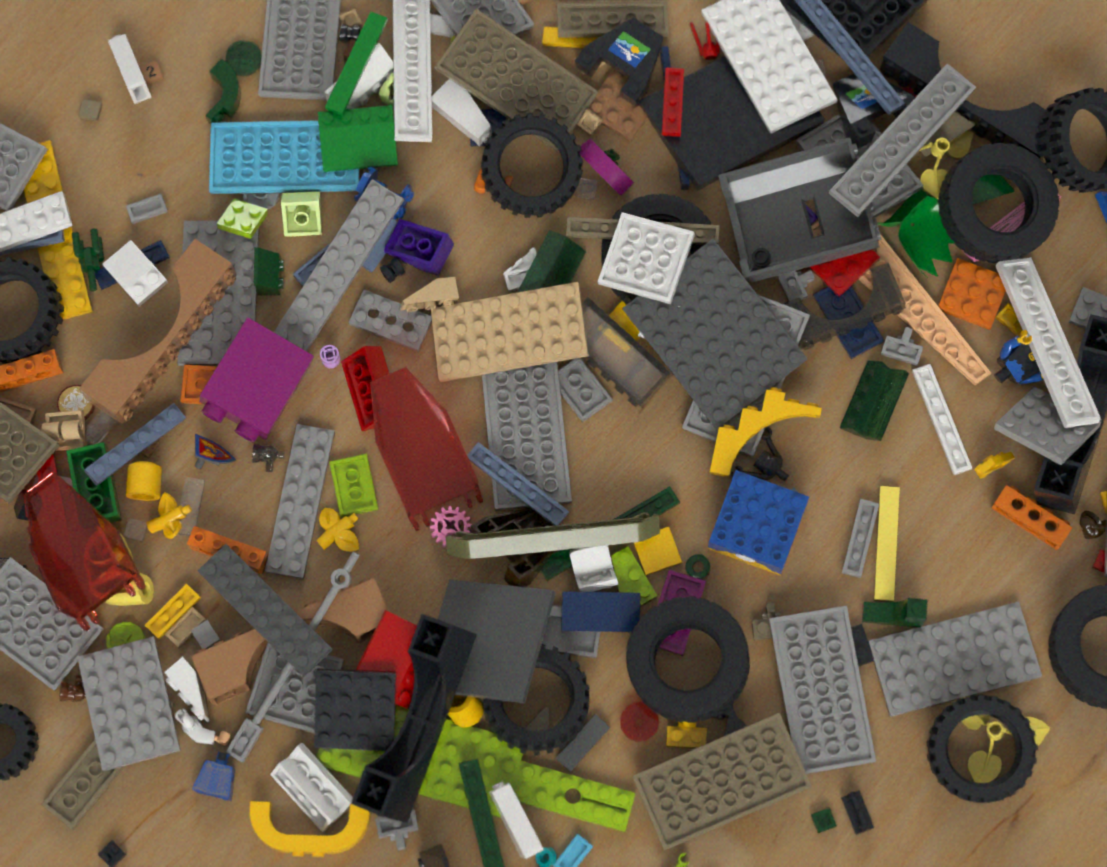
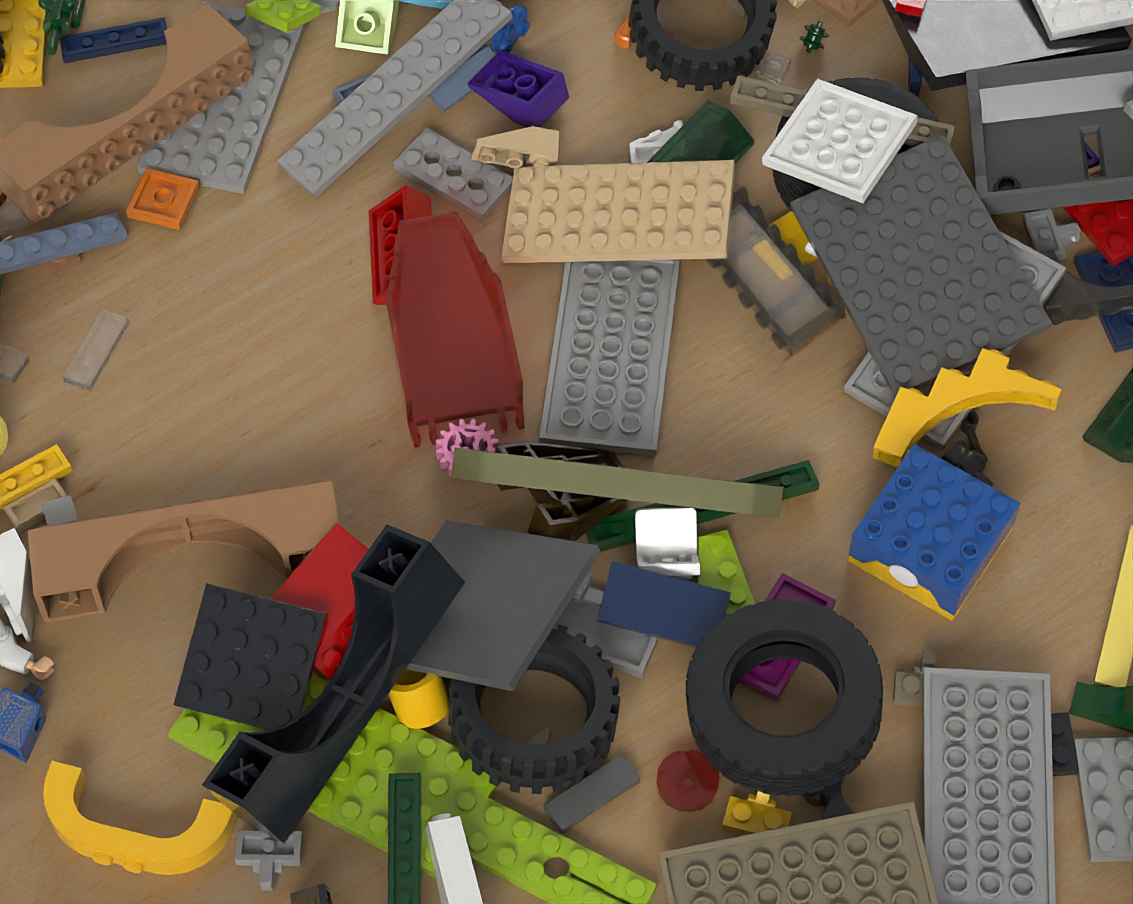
camera: 10 degrees right, 15 degrees down
(135, 273) = (116, 48): white slope -> none
(143, 481) = (39, 298): yellow piece -> none
(169, 517) = (61, 353): yellow plant -> none
(210, 543) = (131, 412): orange brick -> none
(211, 452) = (146, 284): shield -> none
(250, 729) = (85, 662): light grey bar -> none
(255, 381) = (238, 199): magenta brick -> none
(264, 610) = (157, 491): dark grey plate -> none
(266, 454) = (226, 301): clear smoke piece -> none
(268, 272) = (297, 77): dark green slope -> none
(296, 698) = (156, 613): light grey plate -> none
(300, 501) = (255, 376): light grey plate -> none
(312, 787) = (154, 767): white slope -> none
(330, 360) = (354, 198): lavender wheel -> none
(337, 531) = (300, 422): yellow plant -> none
(353, 485) = (340, 369): lime tile -> none
(393, 267) = (473, 111): black wheel -> none
(517, 484) = (580, 408): sand blue plate -> none
(582, 389) = (707, 313): light grey tile -> none
(605, 167) = (808, 41): magenta arch -> none
(658, 552) = (769, 546): yellow tile -> none
(694, 559) = (828, 569): dark green piece -> none
(860, 538) = (1087, 591): light grey plate -> none

